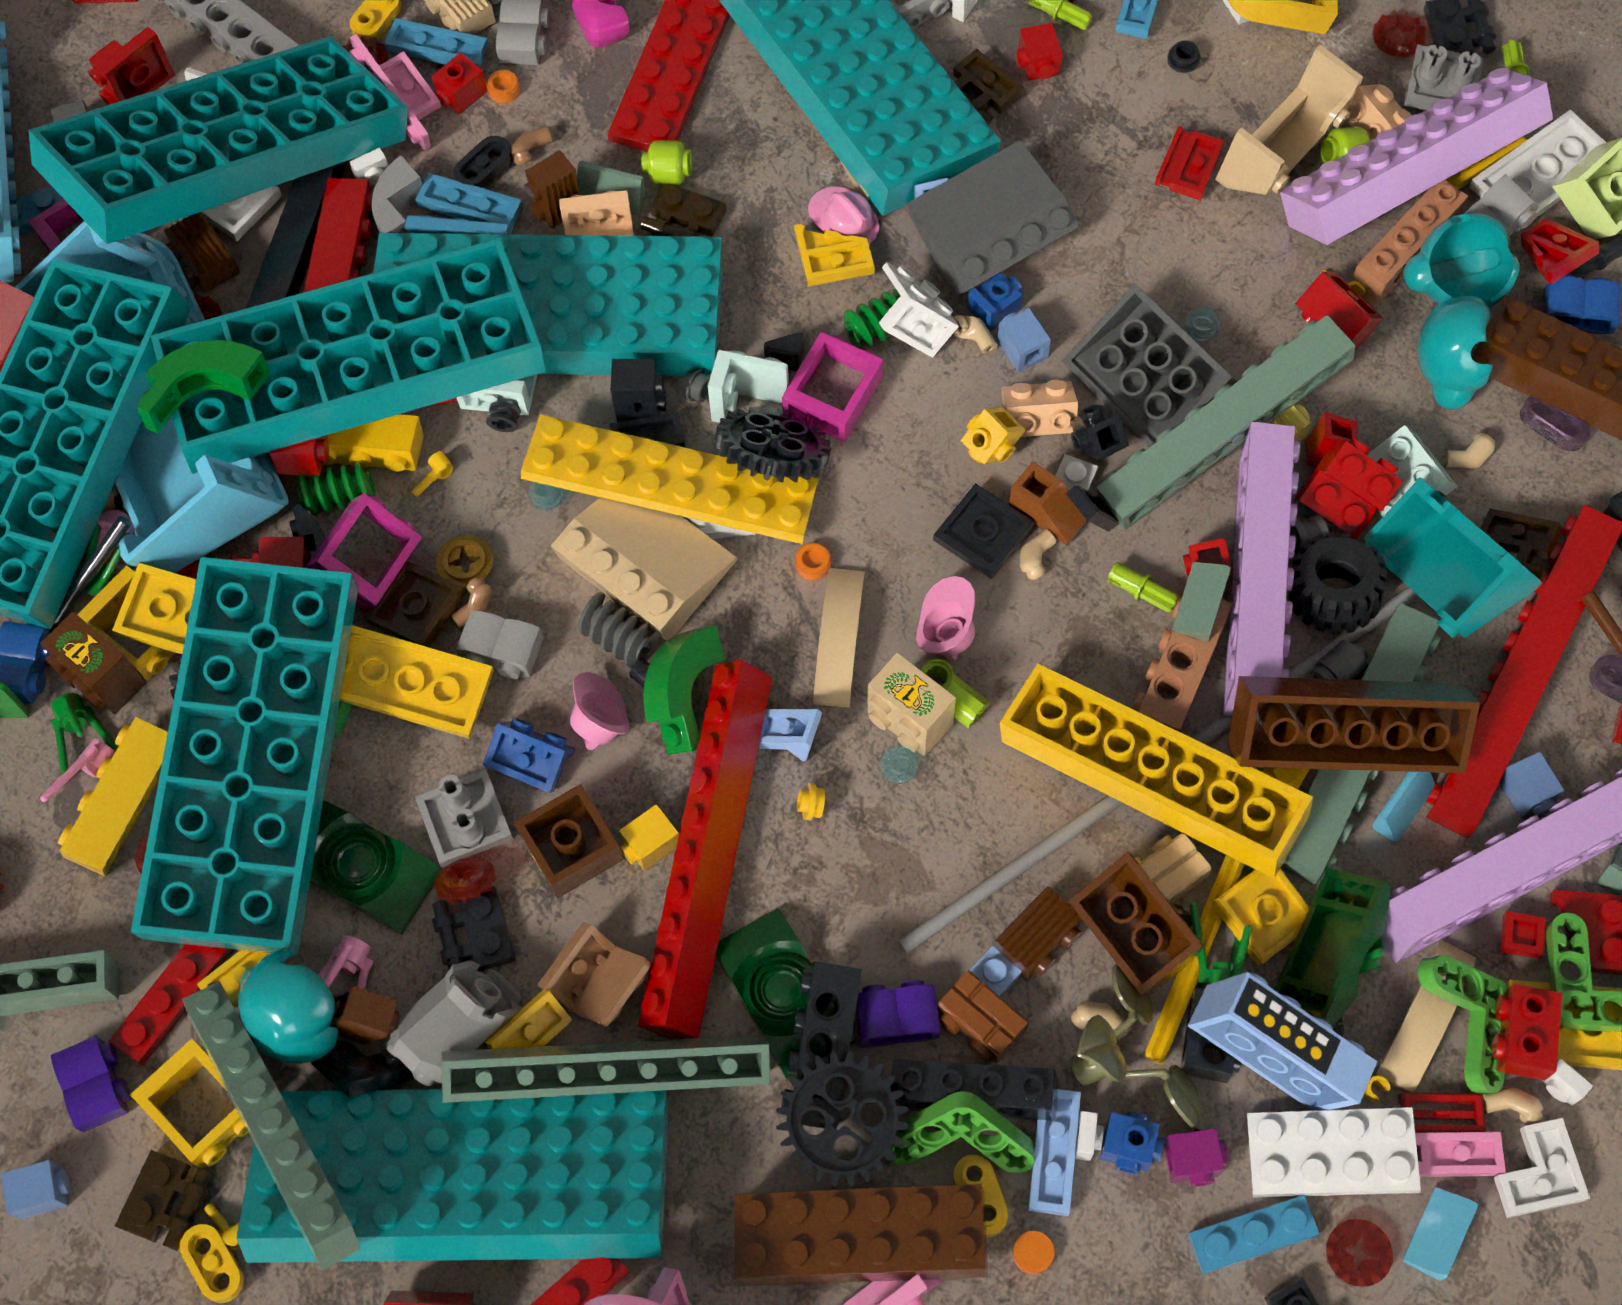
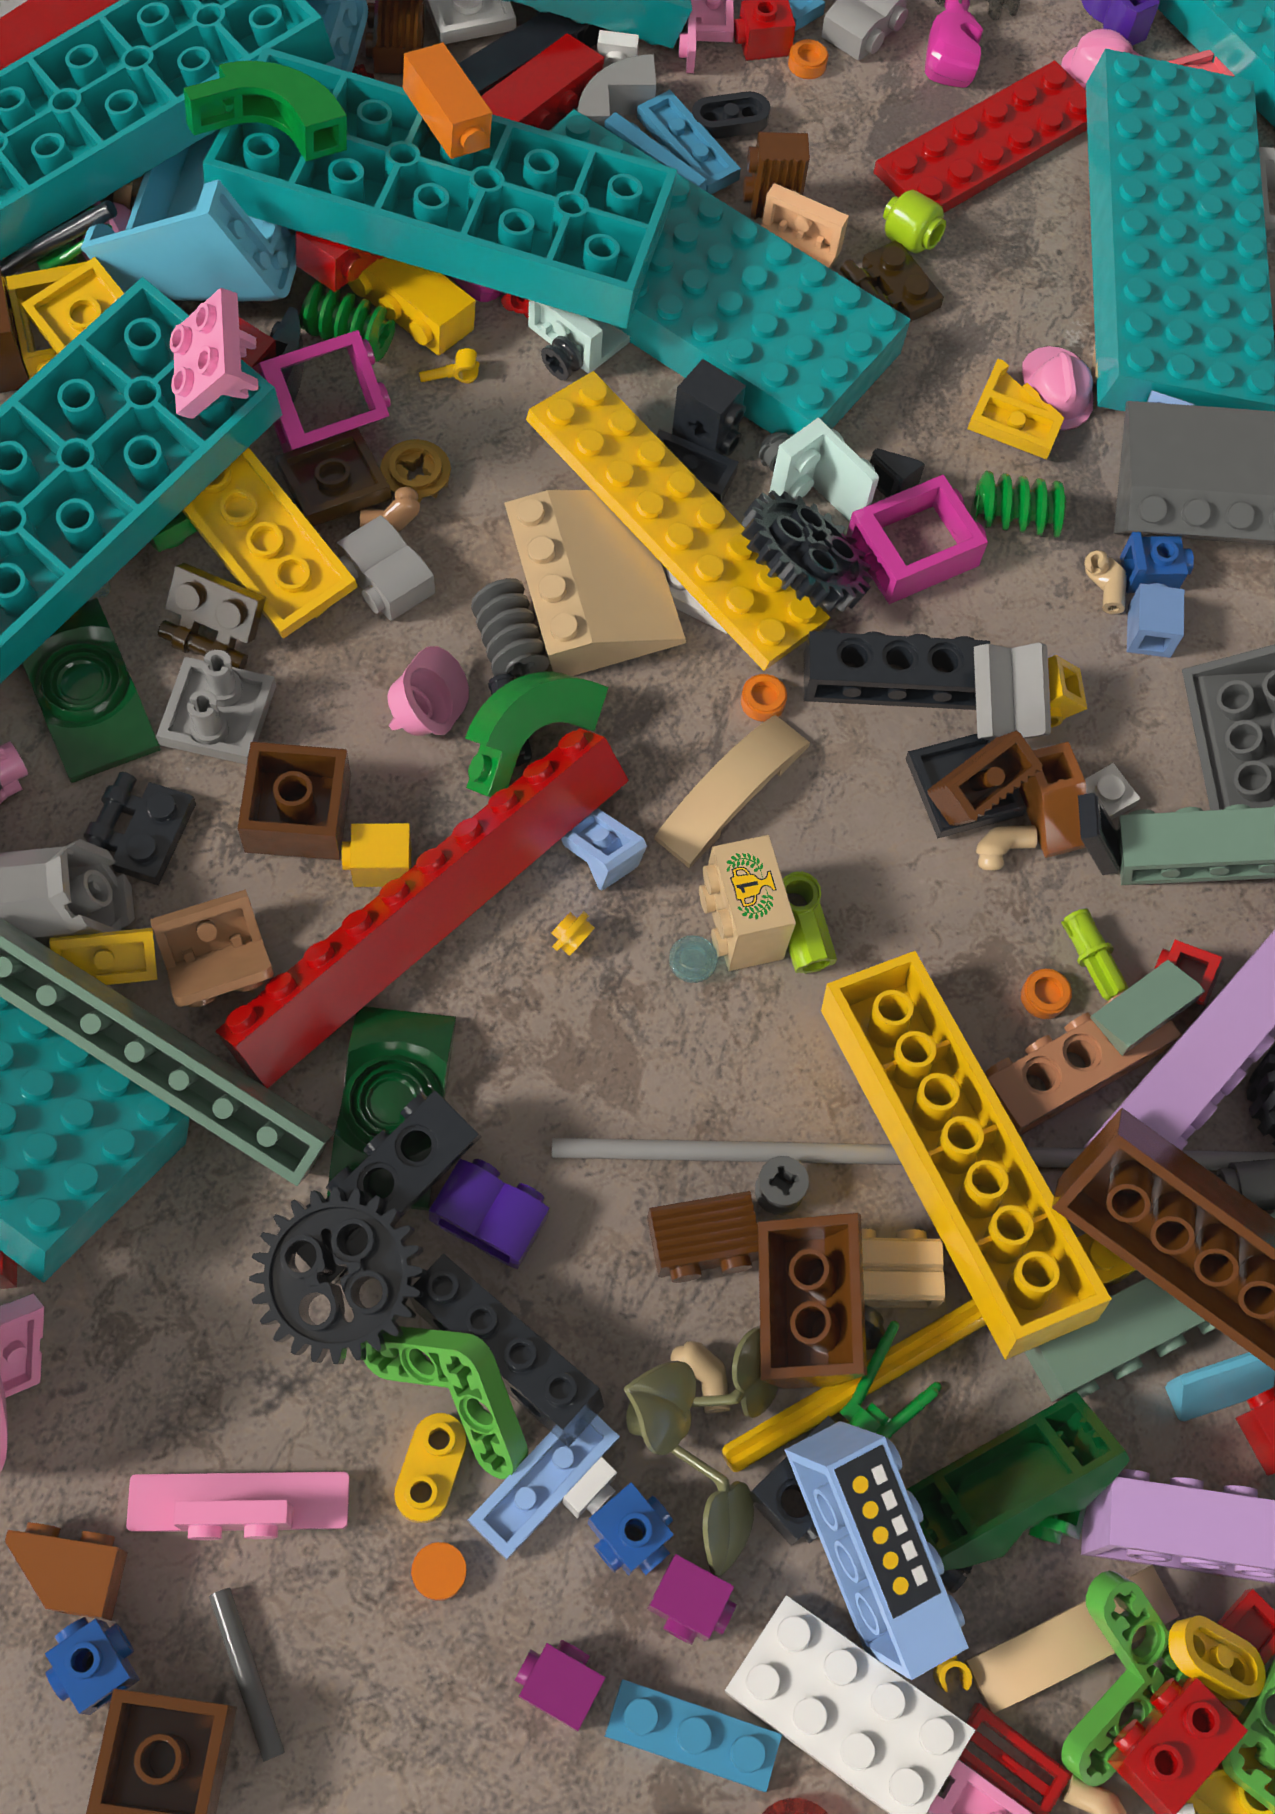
camera: 25 degrees right, 0 degrees up
(298, 582) = (209, 355): none -> bright pink plate
(313, 293) = (447, 100): none -> orange brick
(410, 747) = (216, 604): none -> plate
(476, 871) = (149, 766): clear red gear -> none
(527, 141) = (794, 123): medium nougat arm -> none
(528, 754) = (327, 691): blue bracket -> none
(545, 496) = (544, 459): clear light blue plate -> none
(600, 179) = (834, 193): sand green slope -> none
(848, 520) = (877, 682): none -> black brick
(860, 1235) = (268, 1415): reddish brown brick -> none
(919, 313) = (1059, 519): white bracket -> none
(947, 618) = (855, 843): bright pink piece -> none
(974, 451) = (1012, 690): none -> light grey panel
(981, 1018) = (575, 1279): dark orange brick -> none
(996, 971) = (626, 1244): light blue plate -> none
(999, 521) = (985, 779): none -> reddish brown brick
(1042, 407) = (1124, 701): light nougat bracket -> none
(1057, 875) = (779, 1196): none -> dark grey wheel
(1098, 432) = (1172, 774): black brick -> none
(1130, 633) = (1046, 993): none -> orange tile
(1156, 1262) = (560, 1683): none -> magenta brick
(1269, 907) = (976, 1389): yellow tile -> none
(1515, 964) = (1217, 1658): none -> yellow plate

